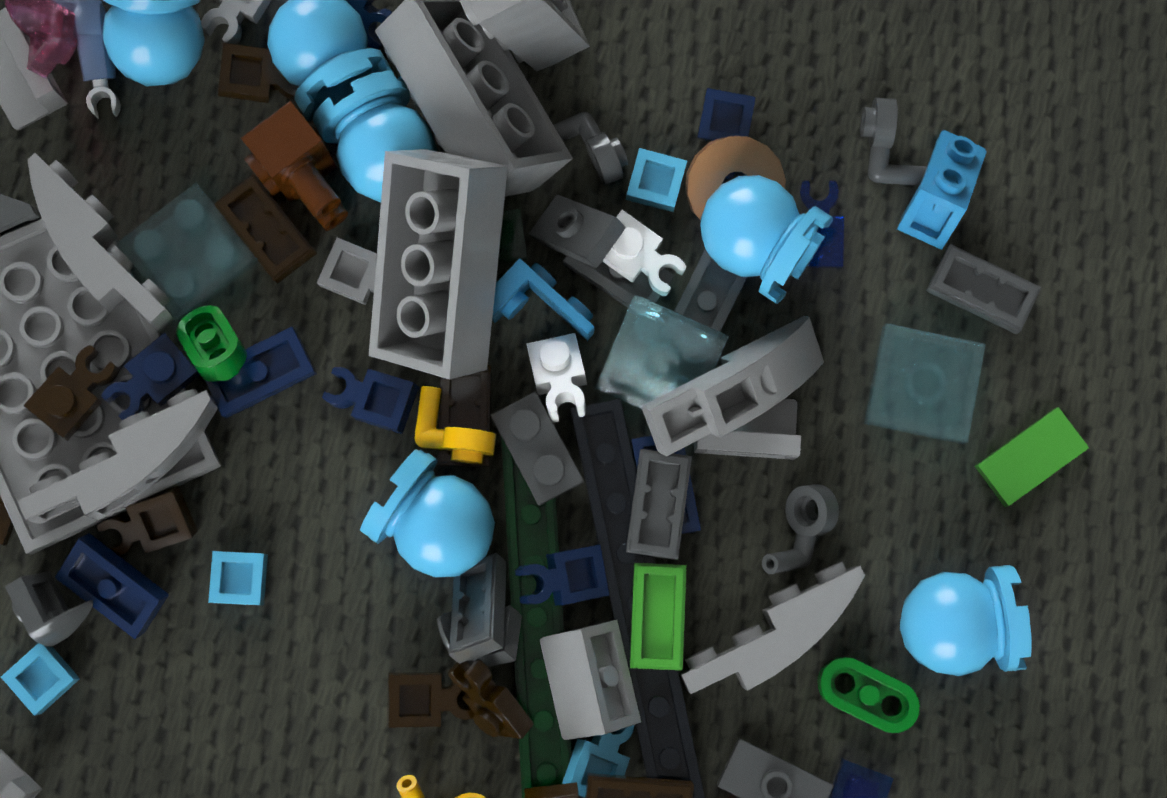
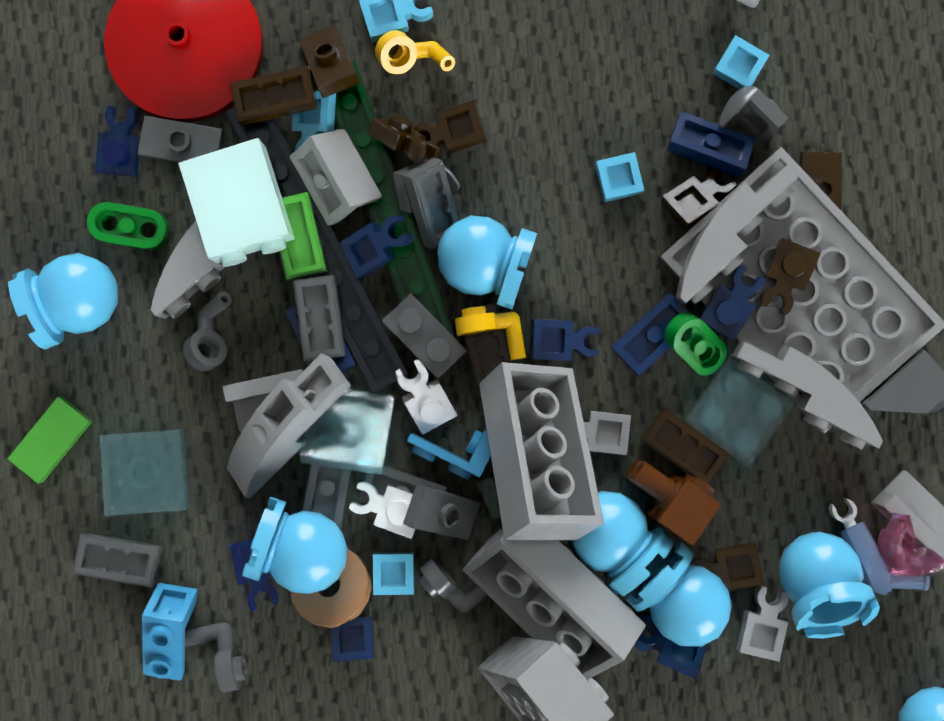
camera: 165 degrees right, 5 degrees up
(719, 674) = (237, 202): none -> light aqua brick

